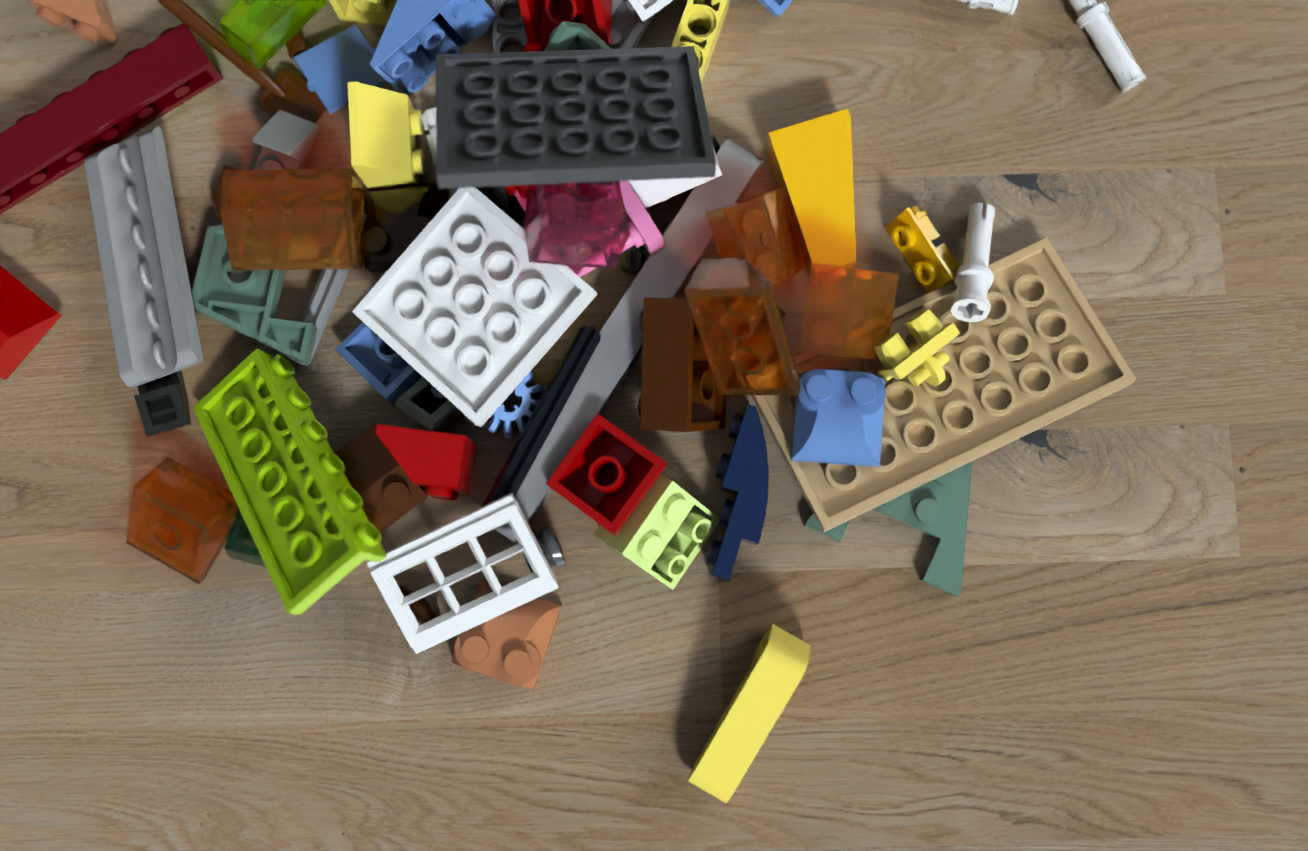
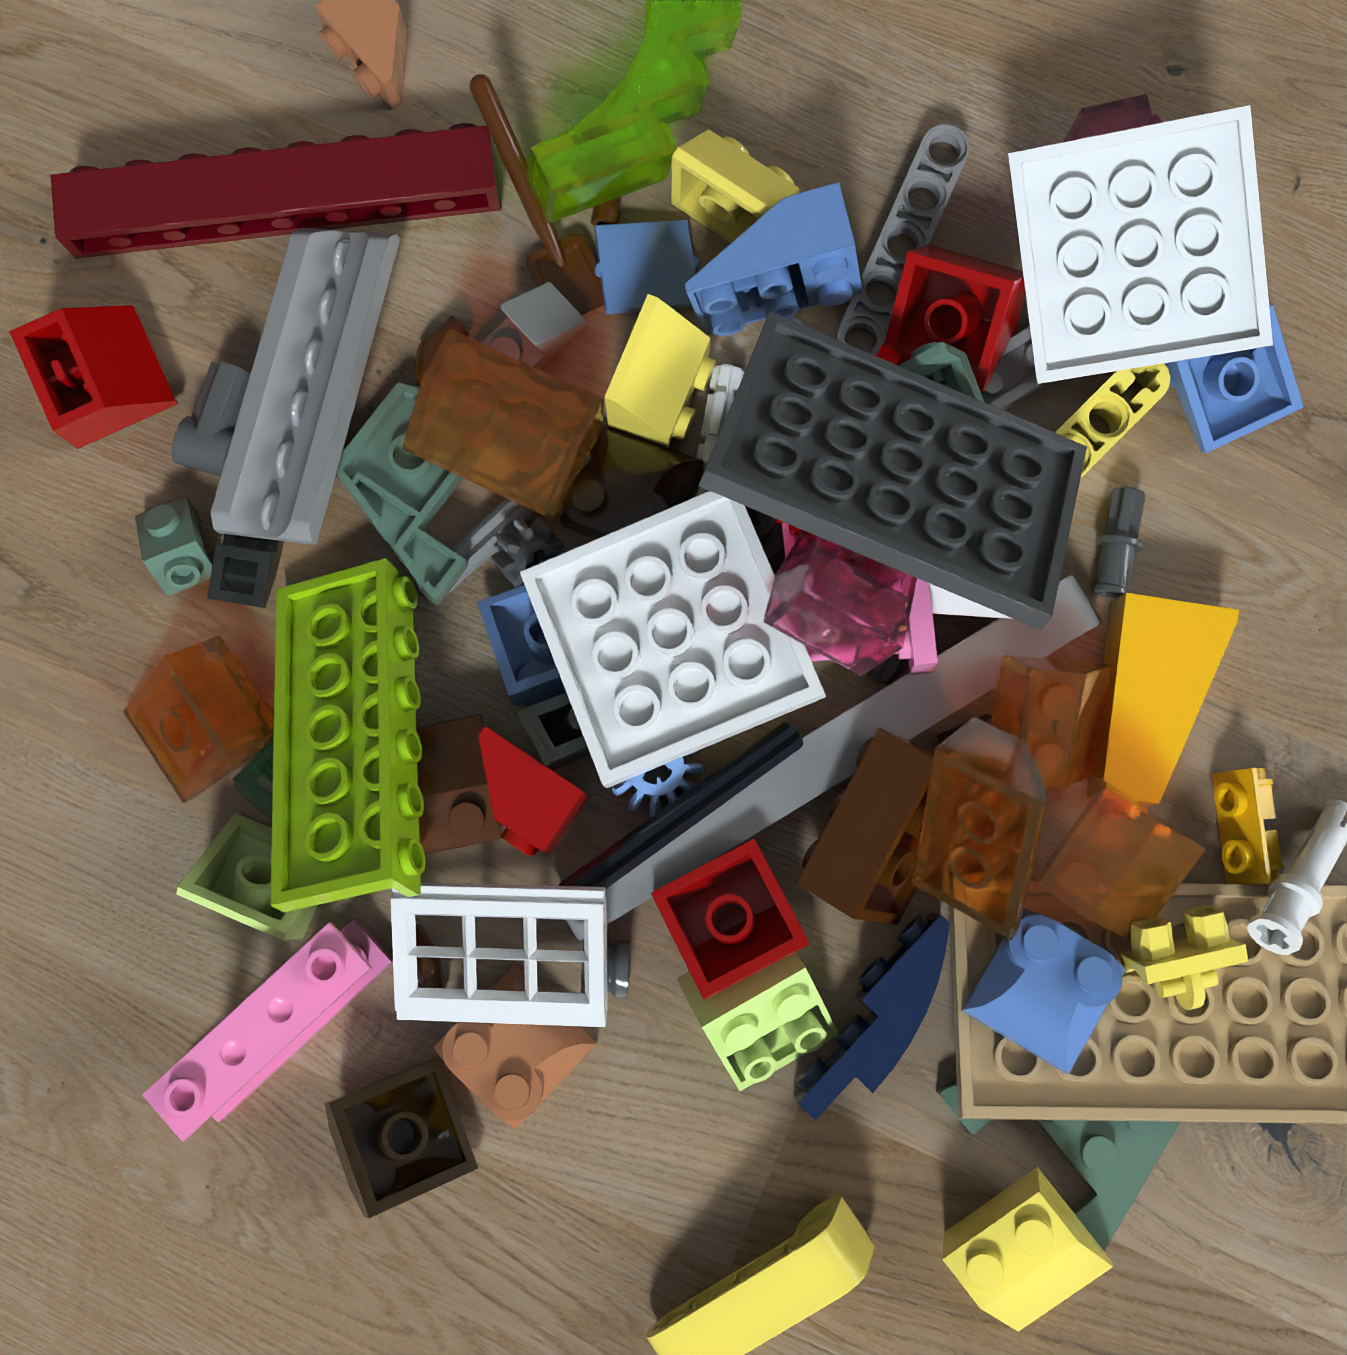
camera: 25 degrees right, 0 degrees up
(91, 328) = (205, 437): none -> dark grey piece
(106, 413) = (173, 546): none -> sand green bracket
(259, 614) = (236, 880): none -> yellowish green slope
(329, 699) = (268, 1027): none -> bright pink fence
(346, 295) = (524, 547): none -> dark grey gear
(456, 731) = (399, 1137): none -> dark brown slope
(750, 102) = (1119, 542): none -> dark grey axle
(910, 600) = (1023, 1252): none -> light yellow slope

